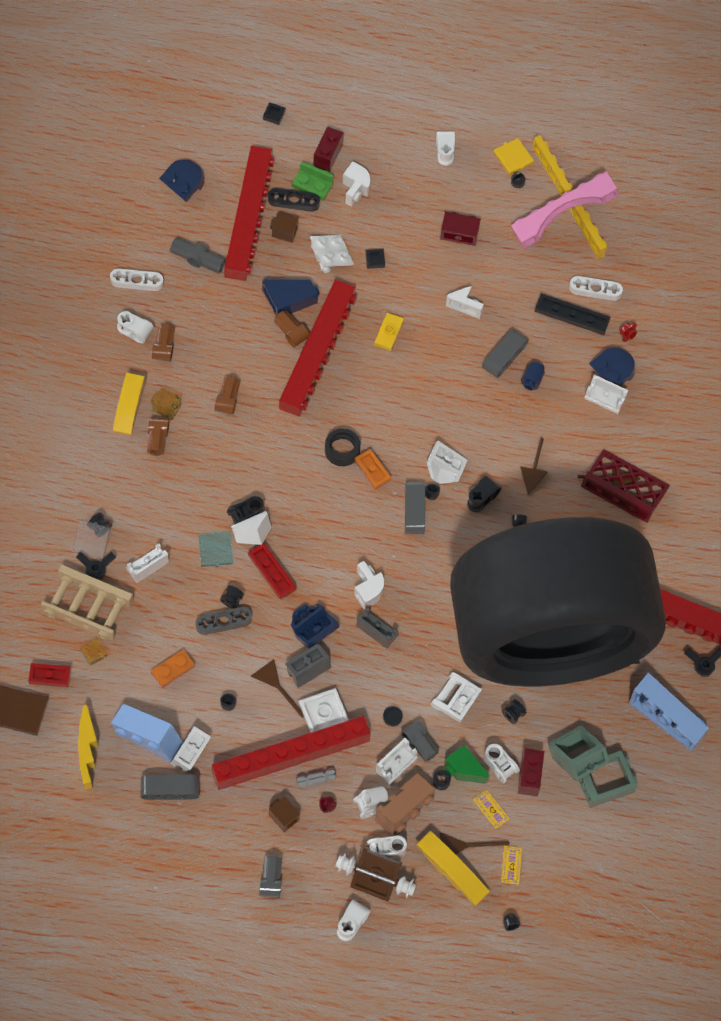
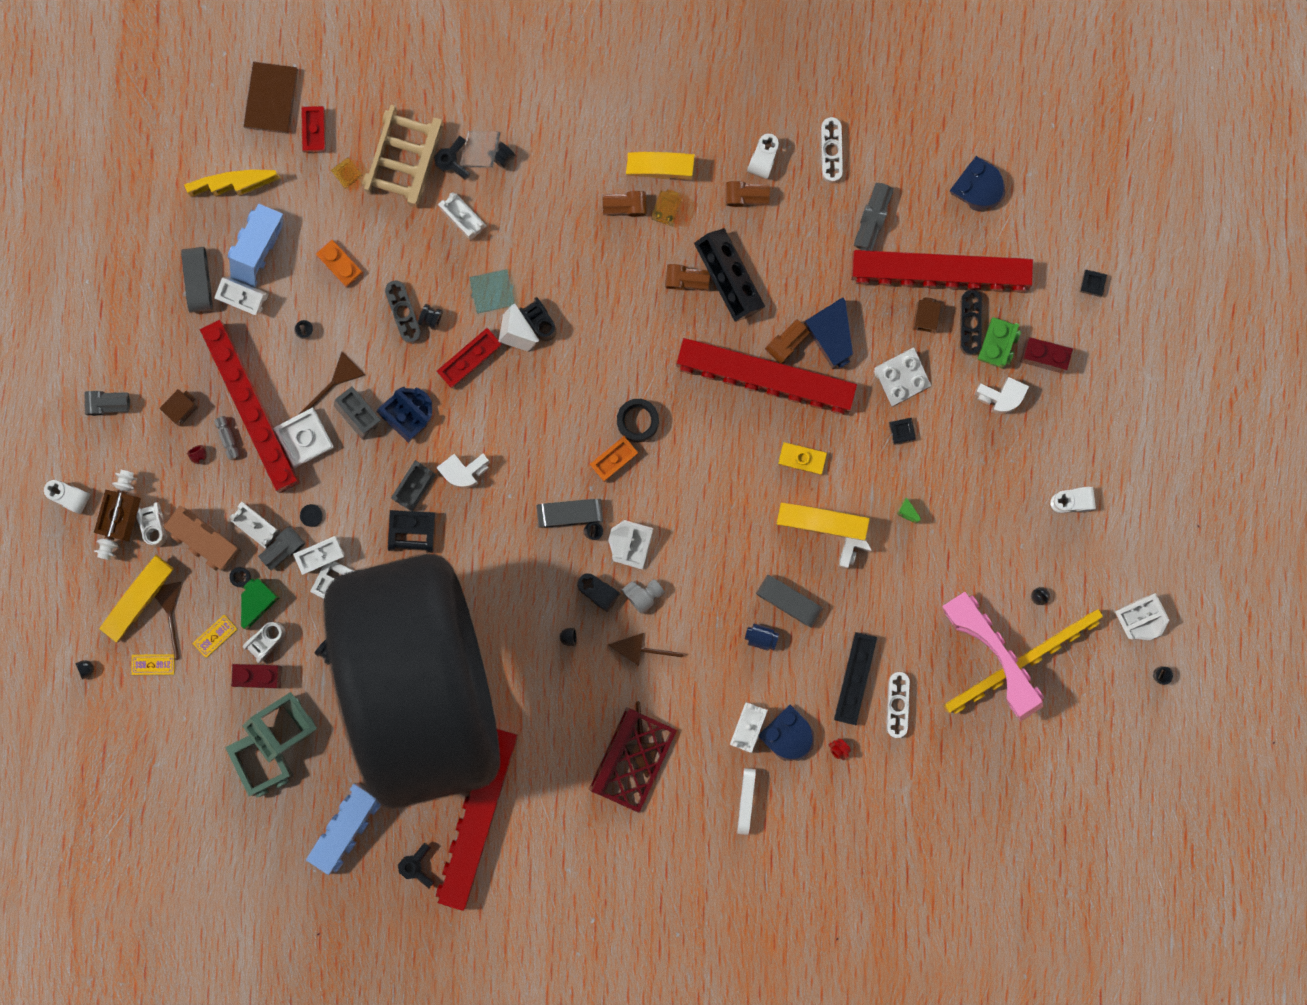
camera: 90 degrees right, 20 degrees up
(230, 362) = (729, 274): none -> black brick
(369, 800) = (201, 500): white piece -> none
(410, 631) = (411, 523): none -> black plate
(429, 708) = (319, 555): none -> white hinge
(441, 260) = (908, 512): none -> bright green slope
(443, 319) = (823, 521): none -> yellow slope
(460, 228) = (957, 530): dark red brick -> none
(492, 460) = (643, 598): none -> light grey piece
(513, 156) = (1076, 587): yellow piece -> none
(542, 112) = (1143, 618): none -> white slope
(588, 106) = (1166, 676): none -> black hinge
(666, 404) = (746, 801): none -> white beam

